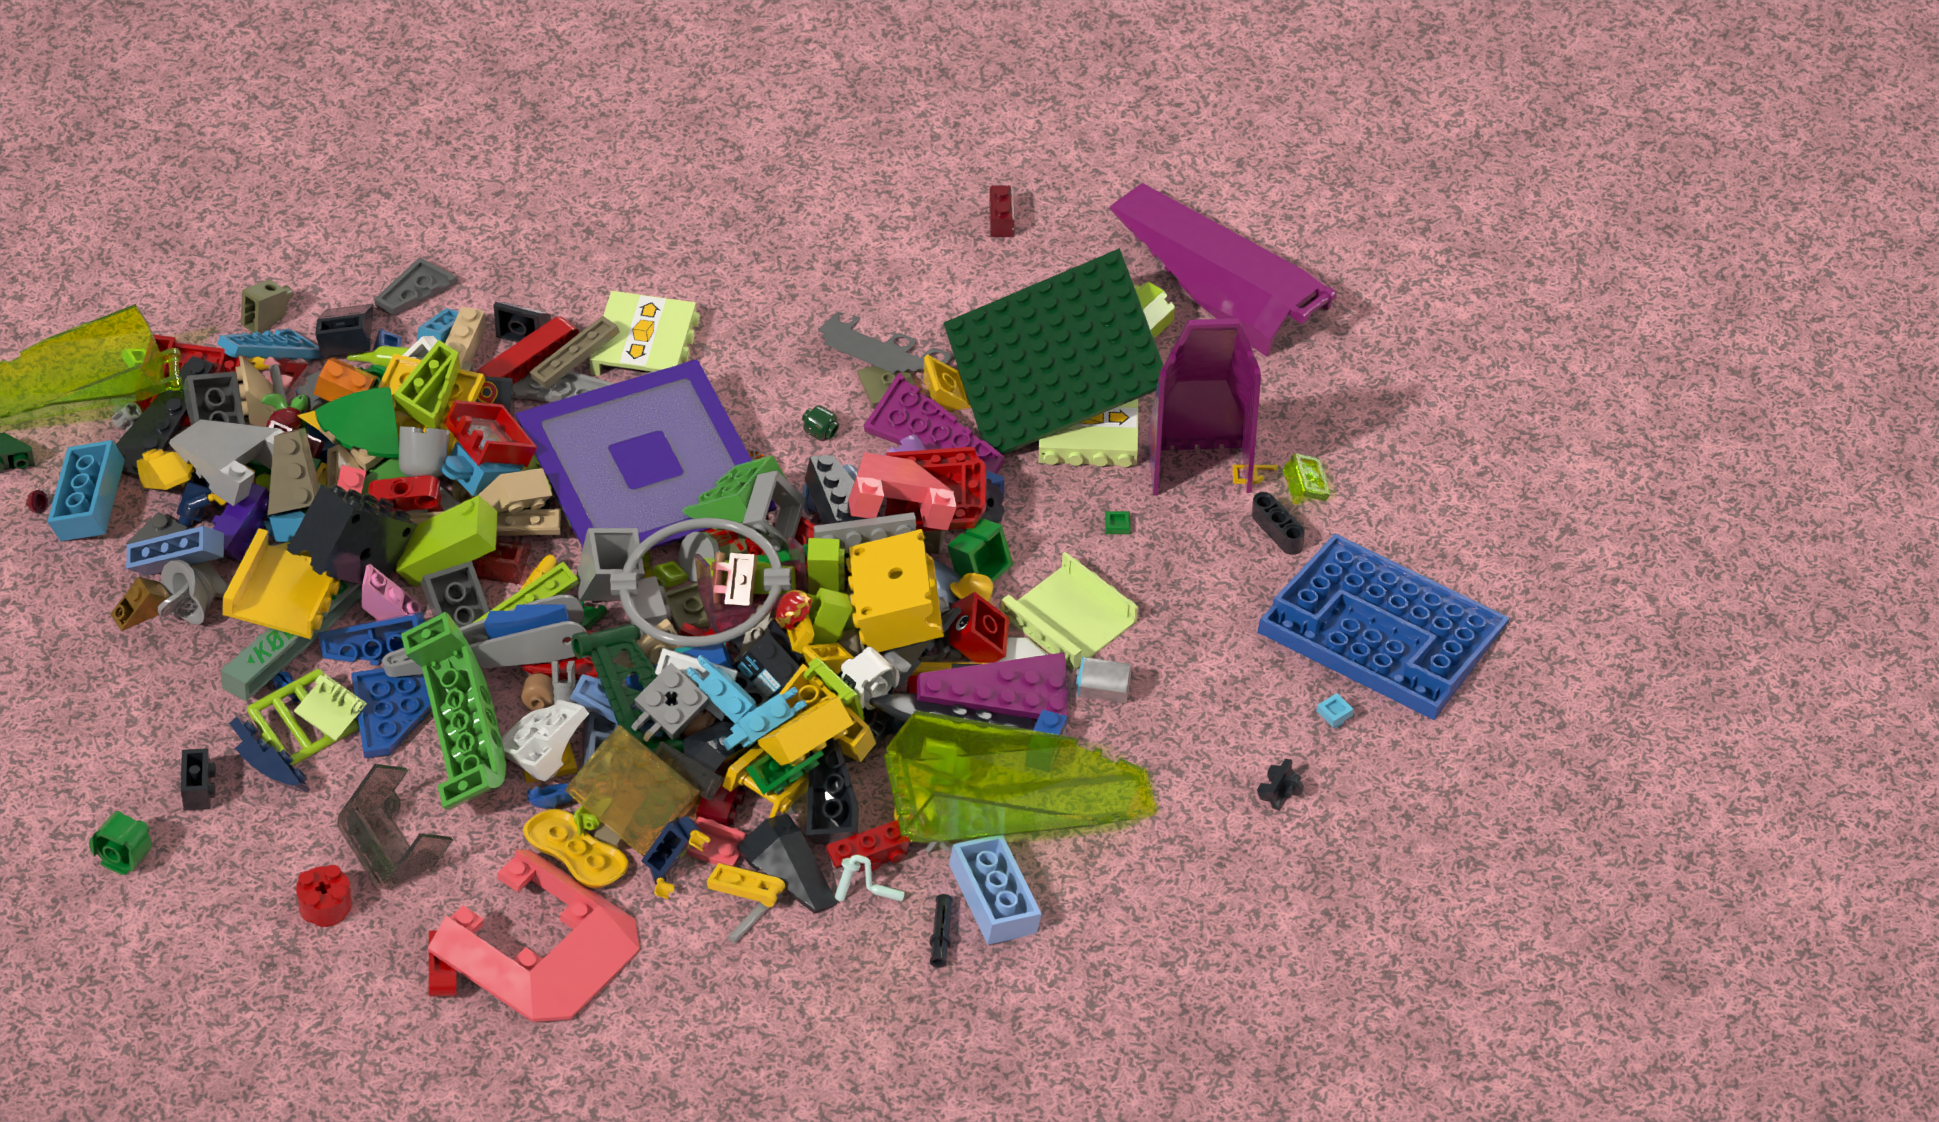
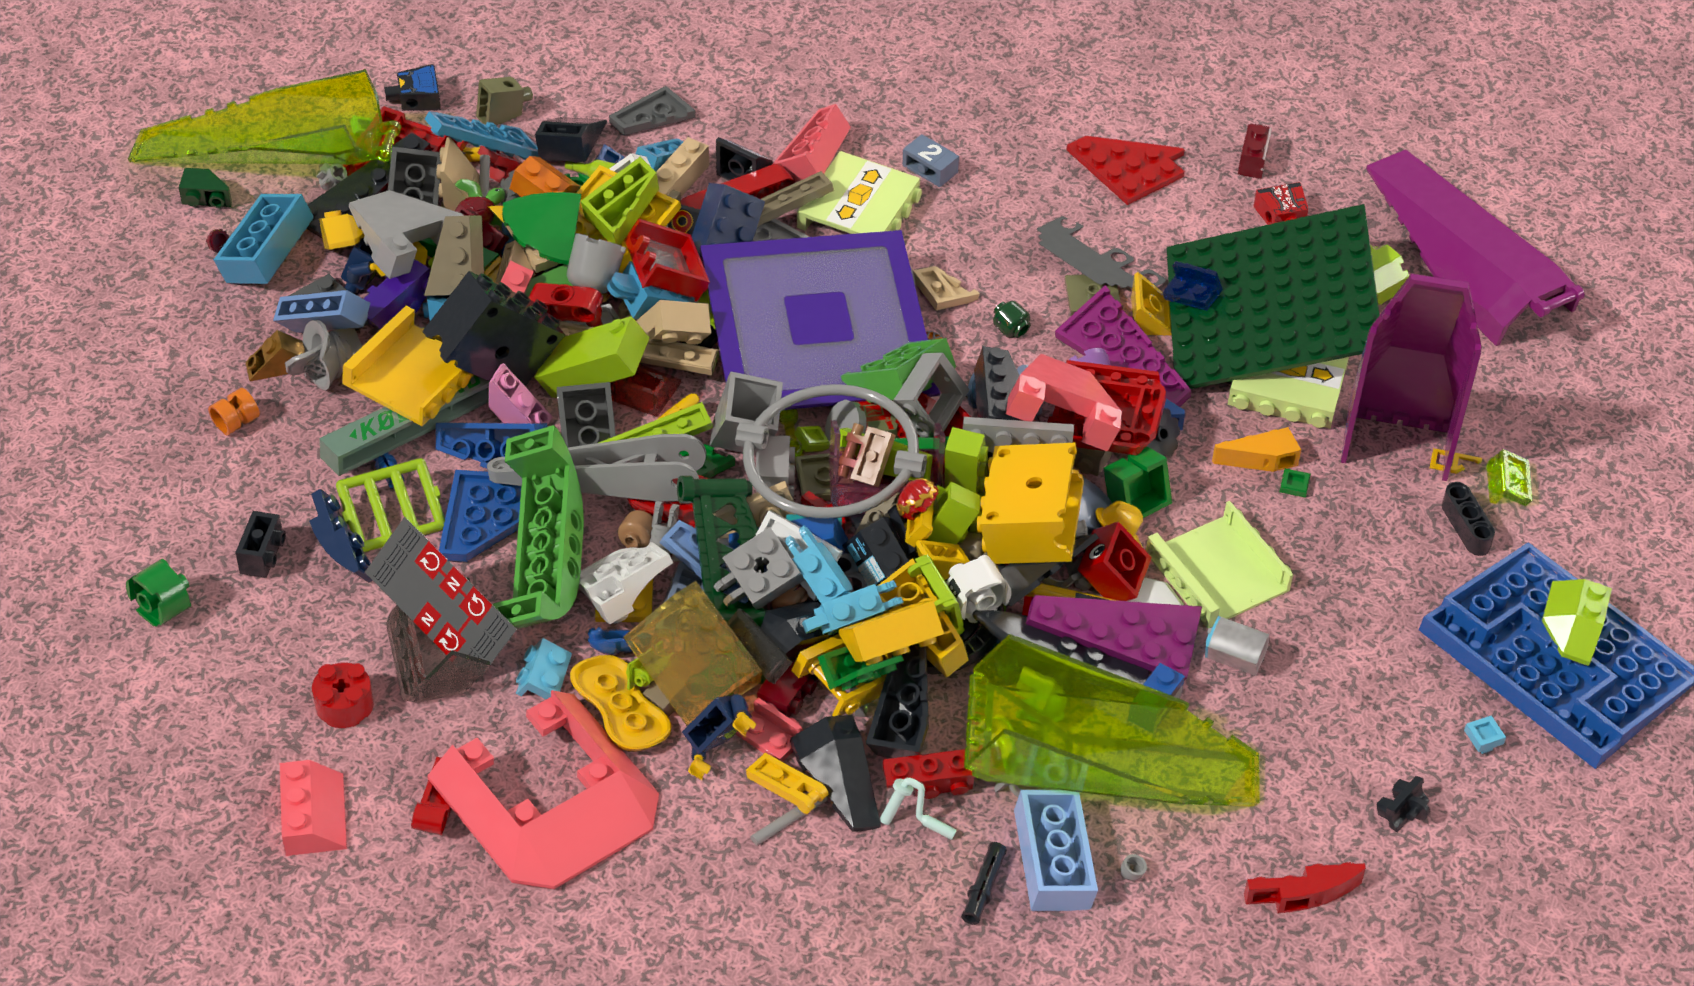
camera: 15 degrees right, 0 degrees up
(122, 662) = (237, 409): none -> orange wheel
(175, 310) = (416, 89): none -> torso
(330, 707) = (420, 498): yellowish green hinge -> none
(332, 999) = (312, 808): none -> coral slope
(385, 789) = (438, 596): none -> dark grey sticker
(495, 835) = (543, 669): none -> medium azure bracket
(523, 618) = (638, 449): blue slope -> none
(530, 380) = (726, 217): none -> dark blue brick
(585, 289) = (815, 144): none -> coral wedge
(698, 282) = (930, 160): none -> sand blue brick
(747, 406) = (941, 289): none -> tan wing
(885, 250) = (1128, 166): none -> red wing
(980, 357) = (1193, 286): none -> clear blue bracket
(1040, 259) = (1281, 203): none -> red torso
(1069, 889) = (1138, 870): none -> light grey hinge
(1082, 500) = (1264, 451): none -> light orange slope
(1221, 872) = (1315, 888): none -> red slope
(1390, 591) = (1576, 617): none -> lime wedge

